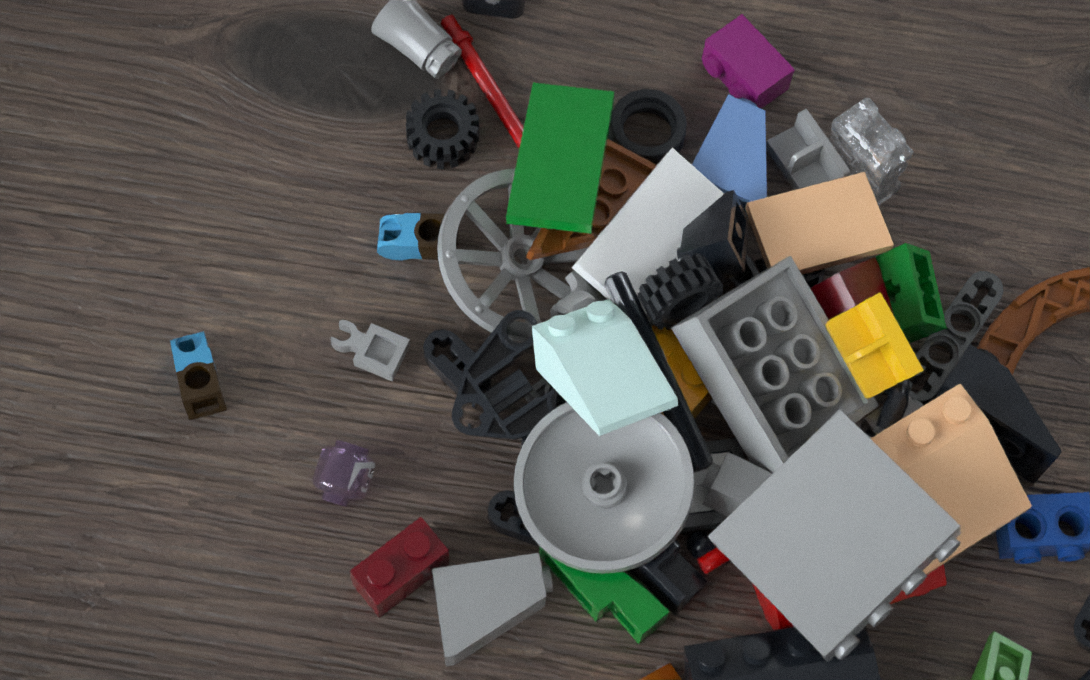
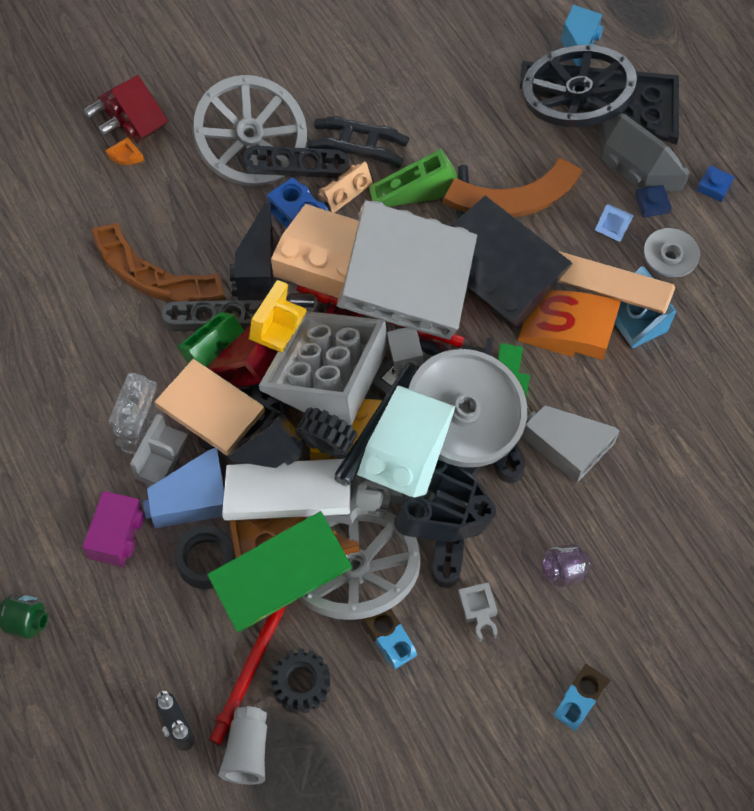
camera: 125 degrees left, 5 degrees down
(399, 567) = (591, 494): dark red brick -> none
(1043, 600) = (348, 187): none -> light nougat hinge

